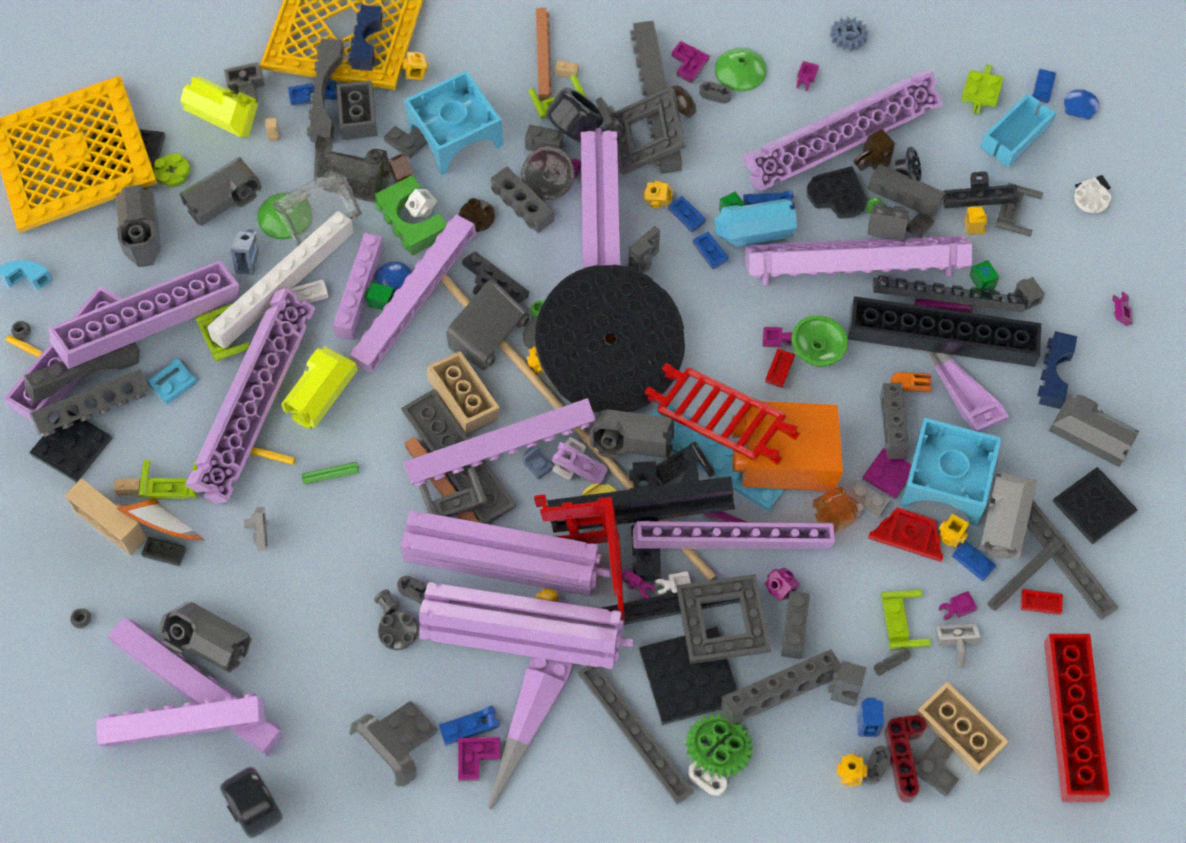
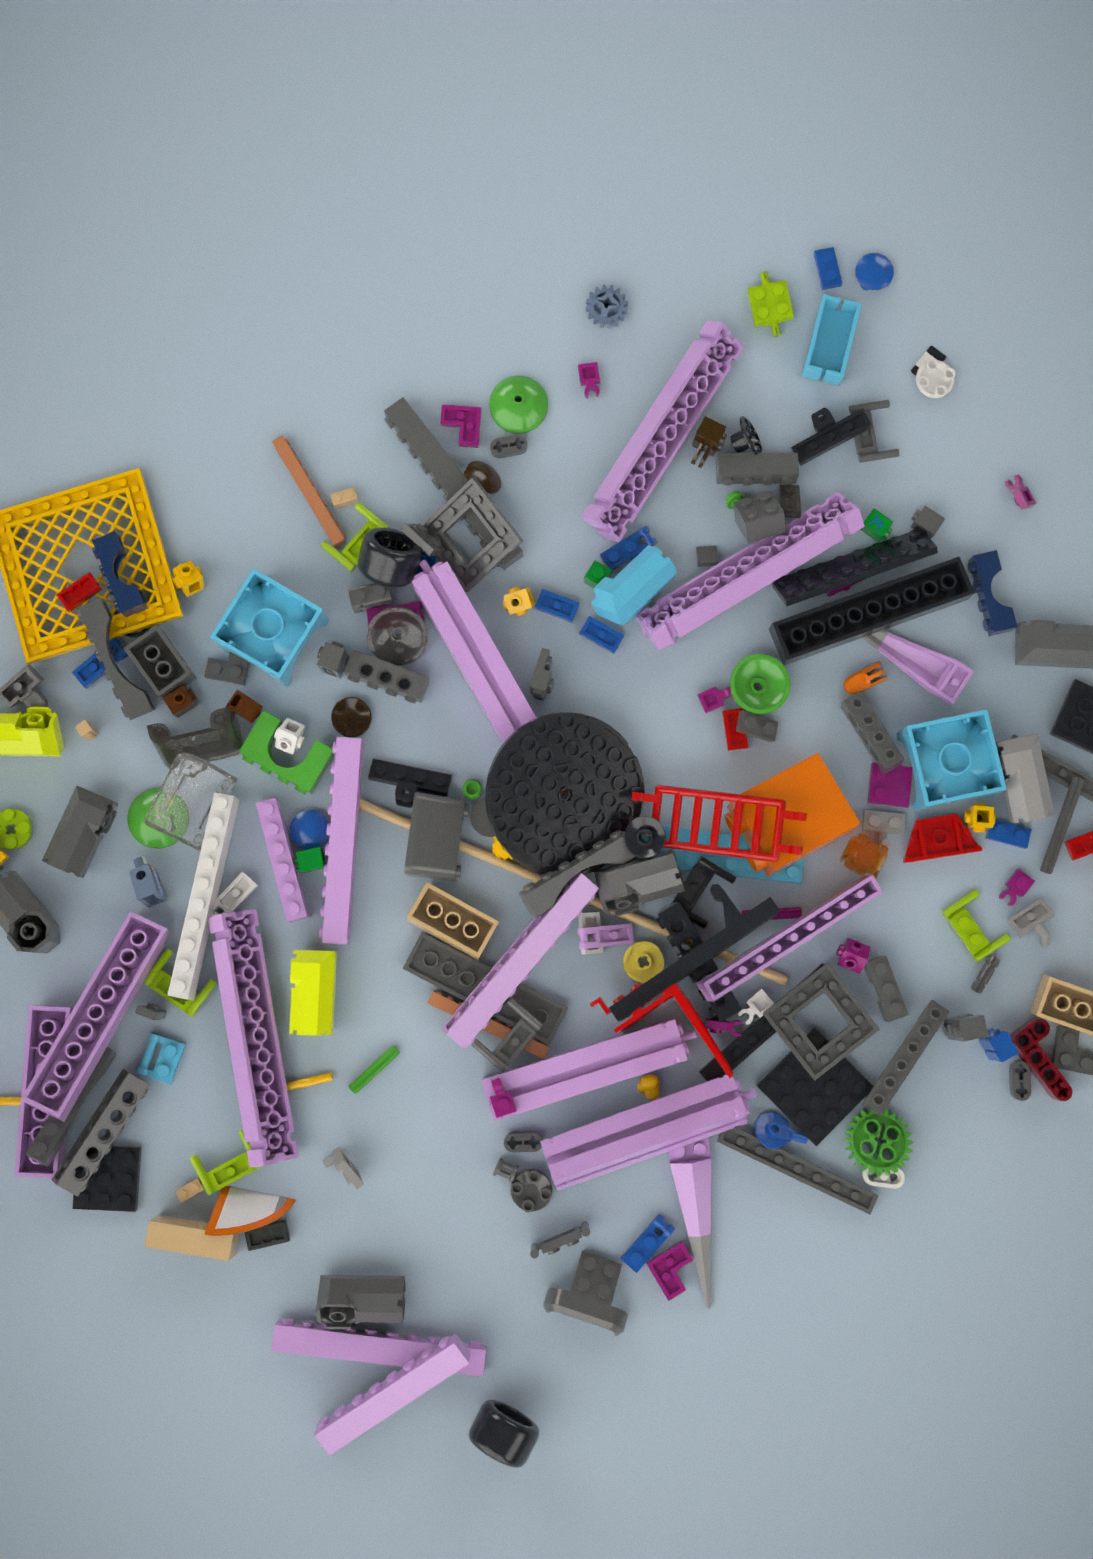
camera: 30 degrees left, 20 degrees up
(80, 613) = (227, 1346): dark grey plate -> none
(187, 338) = (151, 1011): none -> dark grey plate
(329, 33) = (79, 592): none -> red plate
(355, 143) = (181, 701): none -> reddish brown brick
(390, 680) = (552, 1244): none -> dark grey plate
(417, 532) = (502, 1101): none -> magenta plate
(486, 164) = (332, 659): none -> dark grey brick
(537, 462) = (563, 953): sand blue bracket -> none
(544, 399) = (542, 895): none -> dark grey arch
(634, 691) = (775, 1131): none -> blue piece
(651, 392) = (635, 841): none -> black dish
(799, 372) = (757, 726): none -> dark grey plate
(829, 234) = (706, 556): none -> dark grey slope
(839, 191) = (690, 501): black plate -> none
(848, 776) = (999, 1095): yellow brick -> none
(975, 220) = (838, 467): yellow brick -> none

